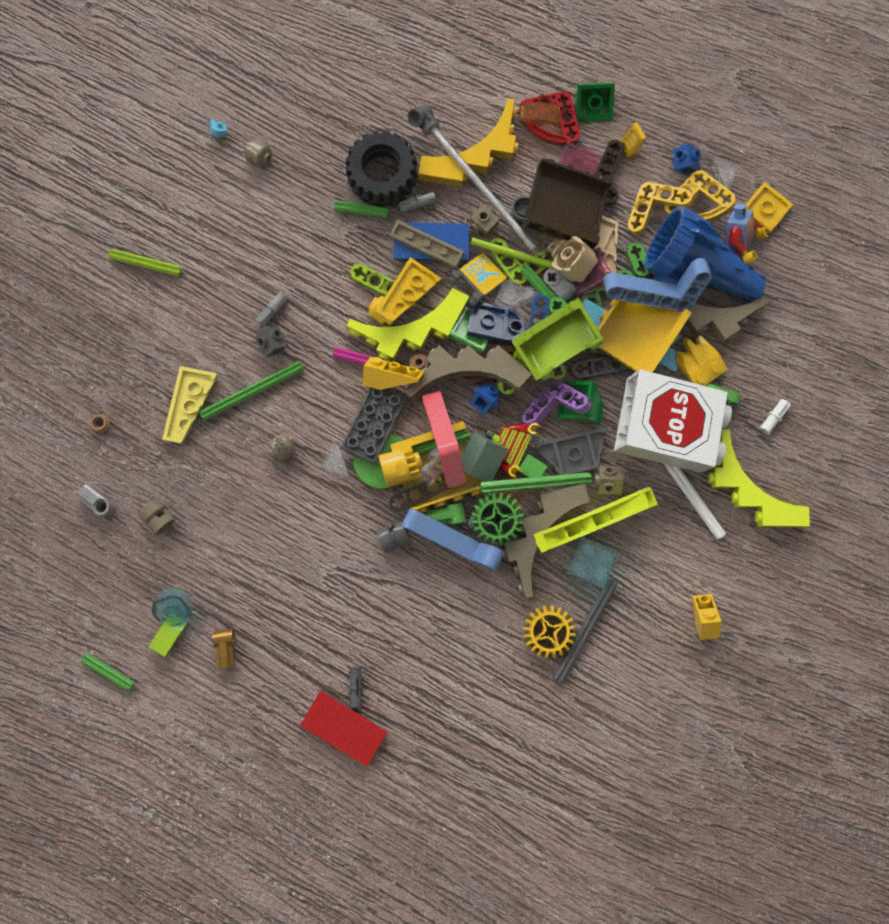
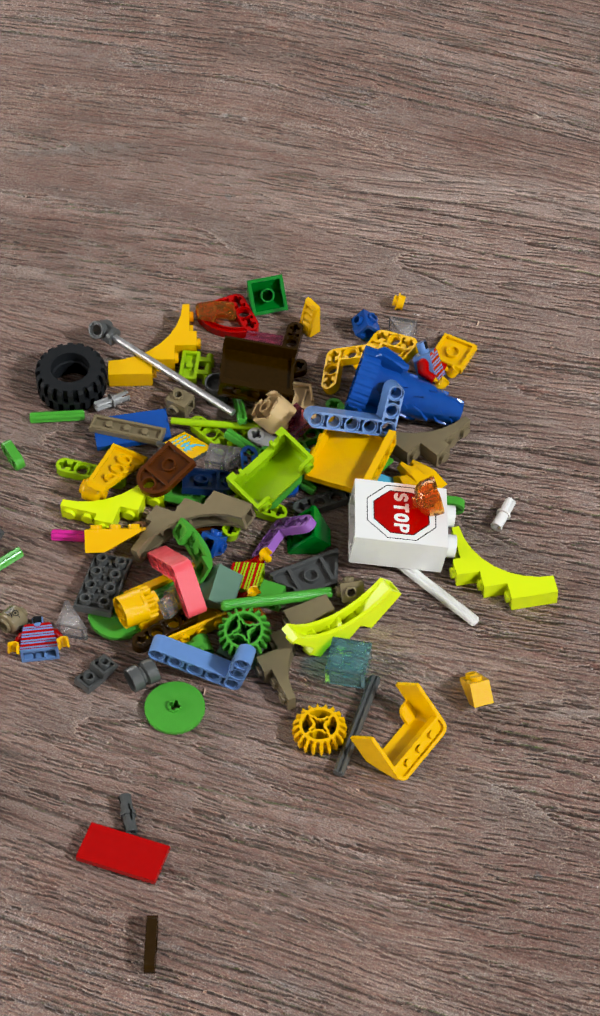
camera: 10 degrees left, 30 degrees down
(301, 477) = (38, 641): none -> torso
(310, 249) = (13, 455): none -> bright green beam
(351, 522) = (98, 672): none -> dark grey slope
(353, 831) = (151, 940): none -> dark brown beam
(420, 591) = (167, 696): none -> bright green piece
(454, 307) = (165, 470): none -> reddish brown tile
(470, 408) = (197, 548): none -> bright green slope
(502, 173) = (190, 365): none -> lime plate
(541, 250) = (241, 414): none -> bright green axle
(629, 662) = (412, 742): none -> yellow windscreen
(708, 411) = (428, 498): none -> clear orange cylinder
(726, 133) = (398, 301): none -> yellow plate

